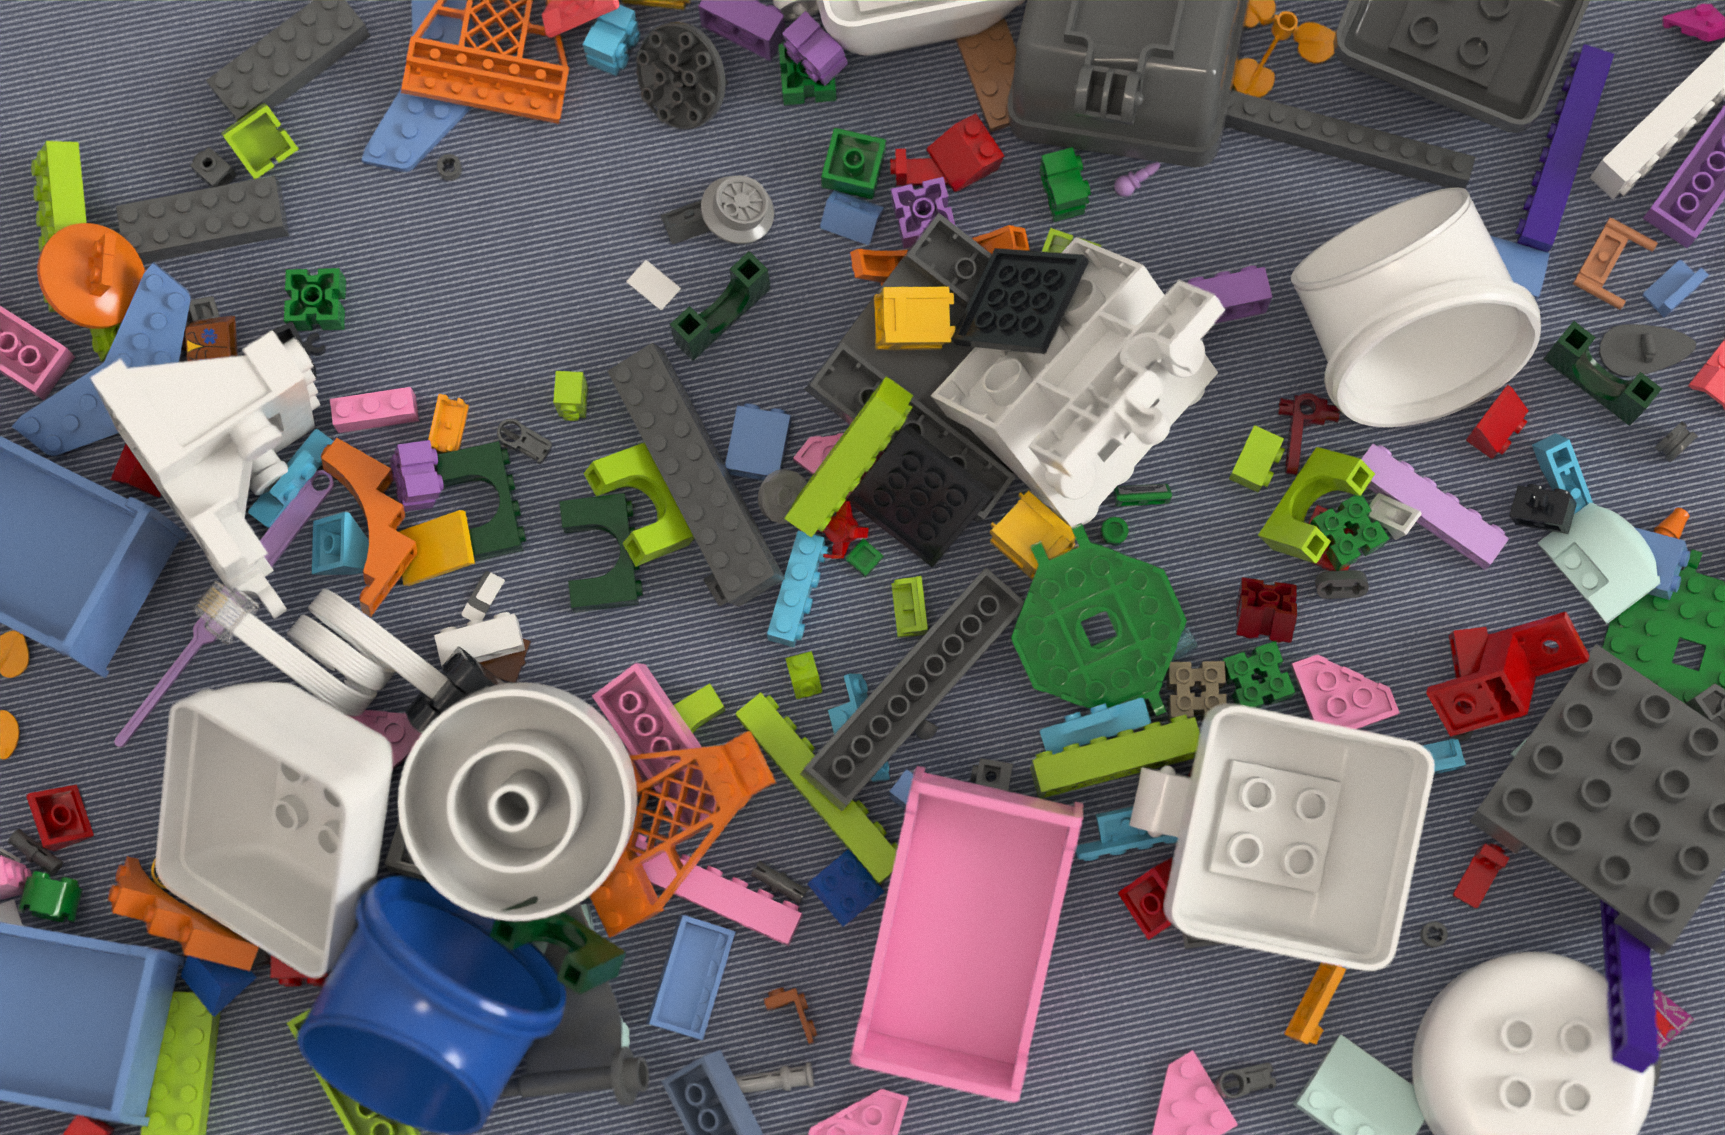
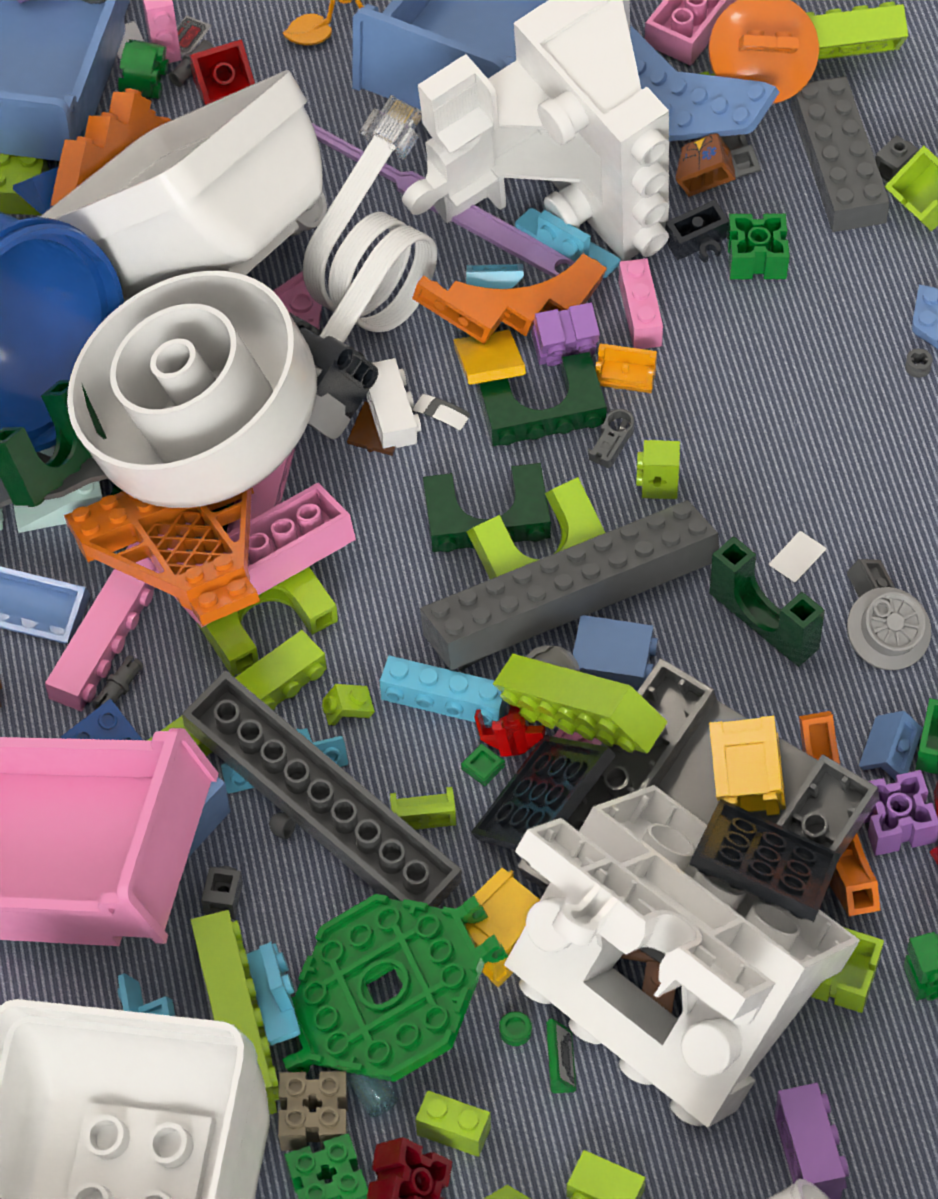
camera: 90 degrees right, 20 degrees down
(1205, 578) = (453, 1123): none -> lime brick

